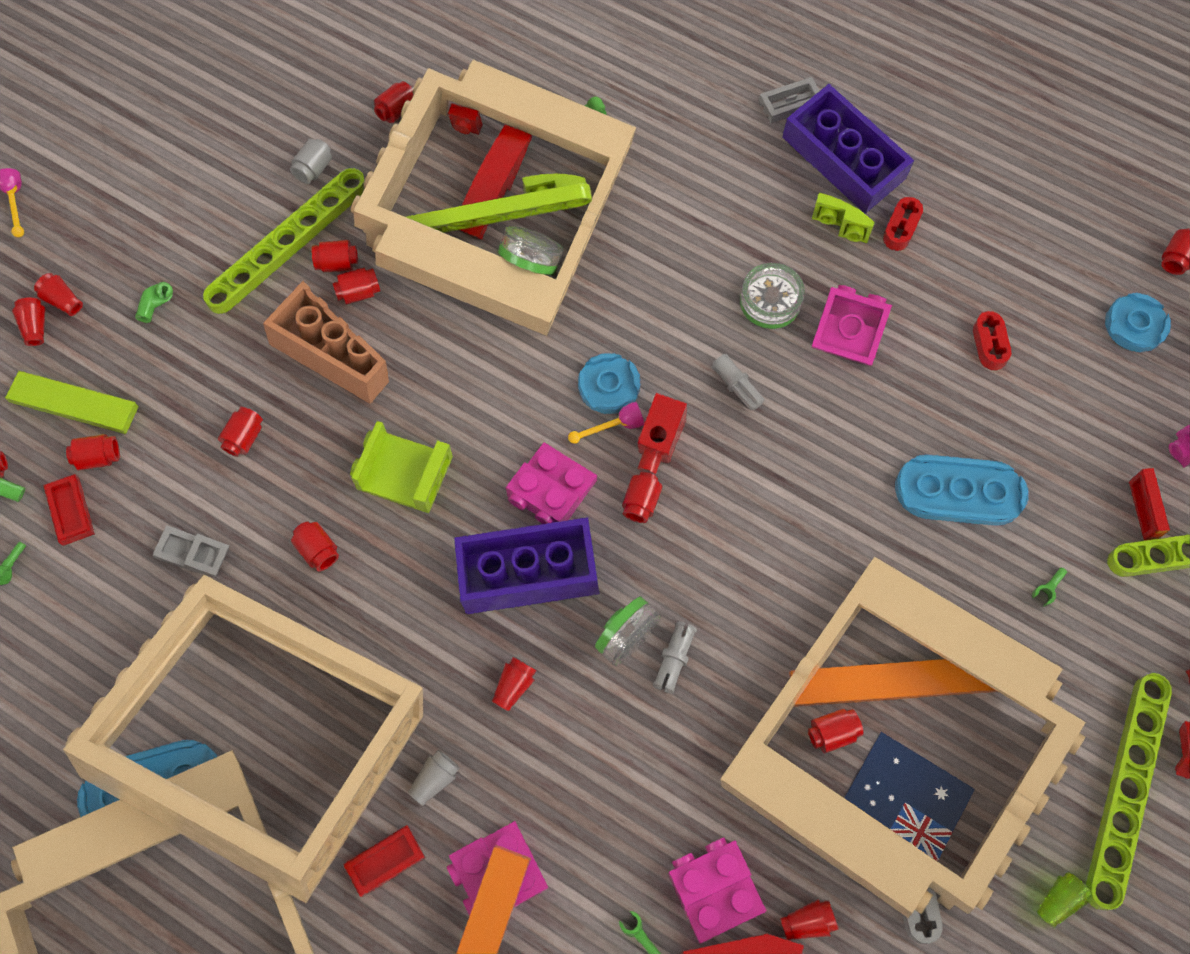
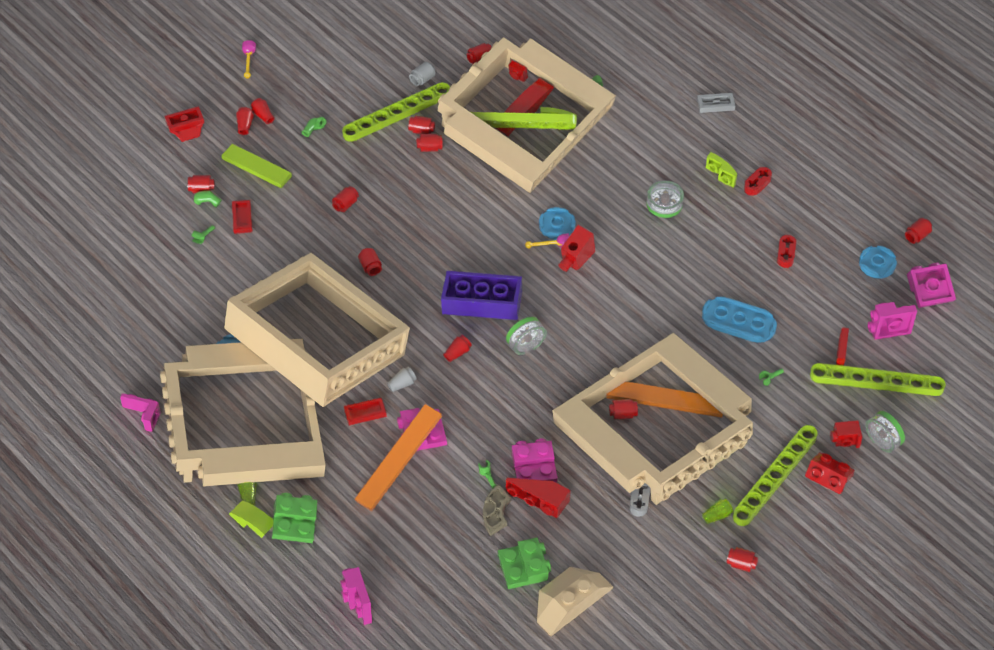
camera: 15 degrees right, 15 degrees down
(93, 452) = (262, 191): red brick -> none
(190, 551) = (298, 248): light grey slope -> none
(323, 342) = (404, 166): nougat wedge -> none
(400, 469) = (427, 238): lime panel -> none
(530, 250) = (533, 144): clear piece -> none
(550, 485) = (507, 261): dark pink plate -> none
(641, 497) = (555, 280): red brick -> none
(674, 657) = (548, 358): light grey pin -> none
(737, 382) = (630, 238): light grey axle -> none
(810, 921) = (580, 487): red cone -> none
(847, 148) = (737, 133): dark purple brick -> none
(851, 325) = (705, 223): dark pink plate -> none
(909, 795) = (655, 446): dark blue sticker -> none

